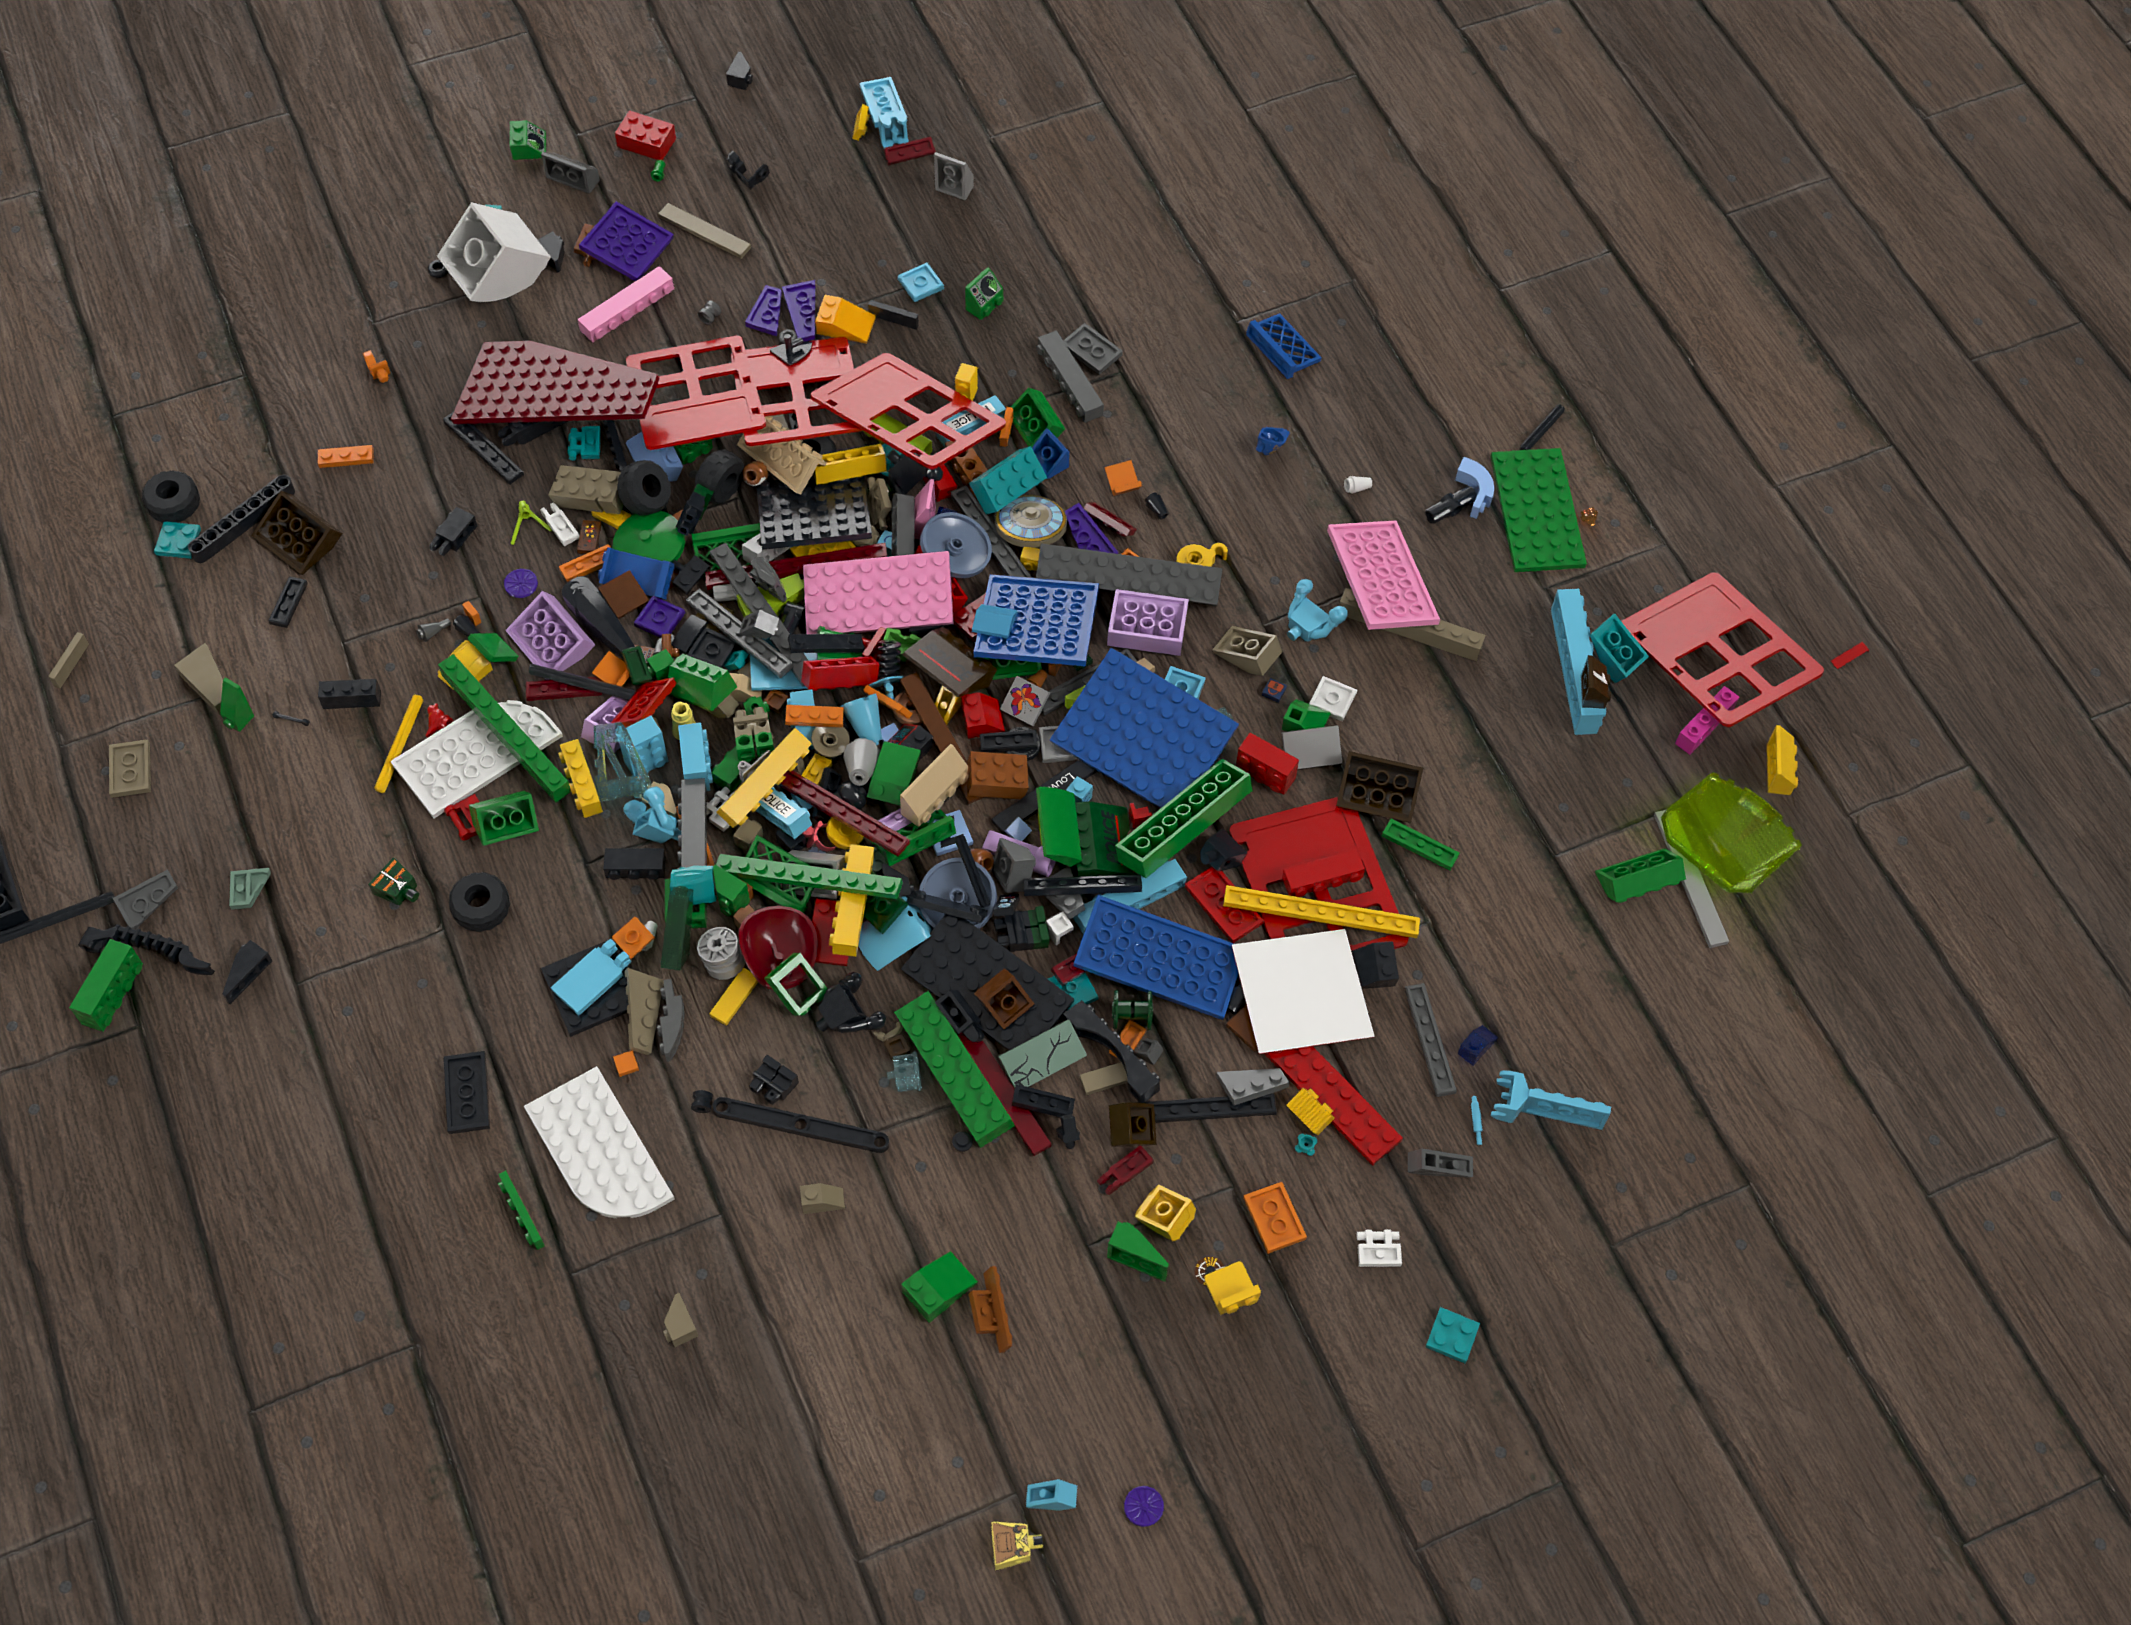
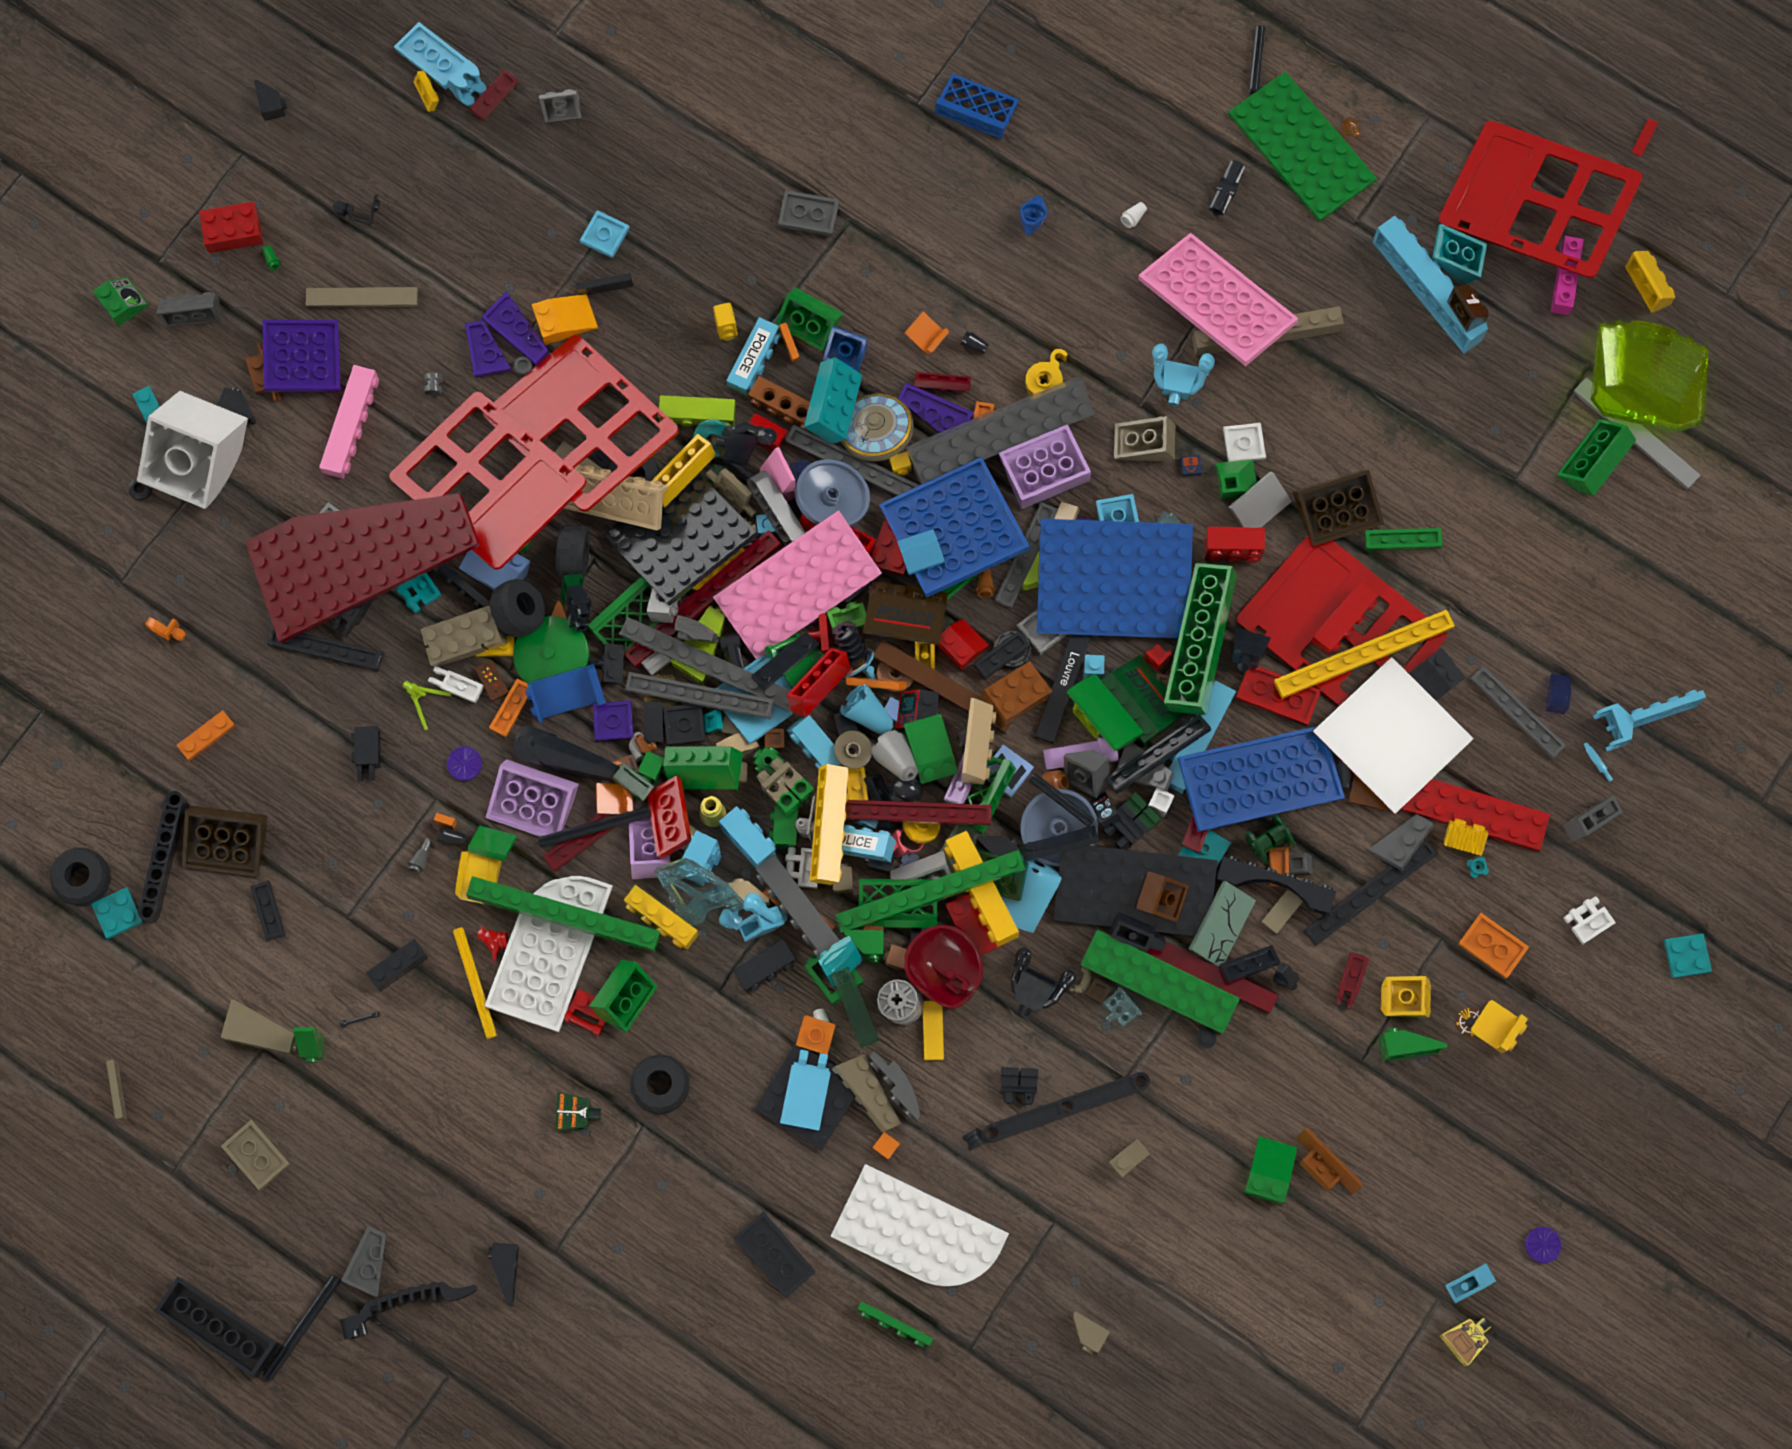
camera: 30 degrees left, 15 degrees up
(106, 985) = (402, 1359): green brick -> none
(246, 886) = (447, 1196): sand green wing -> none
(623, 594) = (567, 719): reddish brown tile -> none
(755, 473) = (600, 529): dark orange head -> none
(759, 625) = (719, 682): flat silver slope -> none
(782, 970) = (967, 985): window -> none
(792, 351) = (540, 379): black shield -> none
(814, 716) = (828, 738): orange plate -> none
(887, 385) = (655, 376): door -> none
(983, 294) = (676, 216): slope -> none
(1018, 829) = (1065, 733): light blue tile -> none
(1025, 701) = (990, 608): light grey tile -> none
(1070, 376) = (809, 255): dark grey brick -> none
(1132, 1124) = (1334, 940): dark brown slope -> none
(1480, 480) = (1240, 149): light blue arch -> none

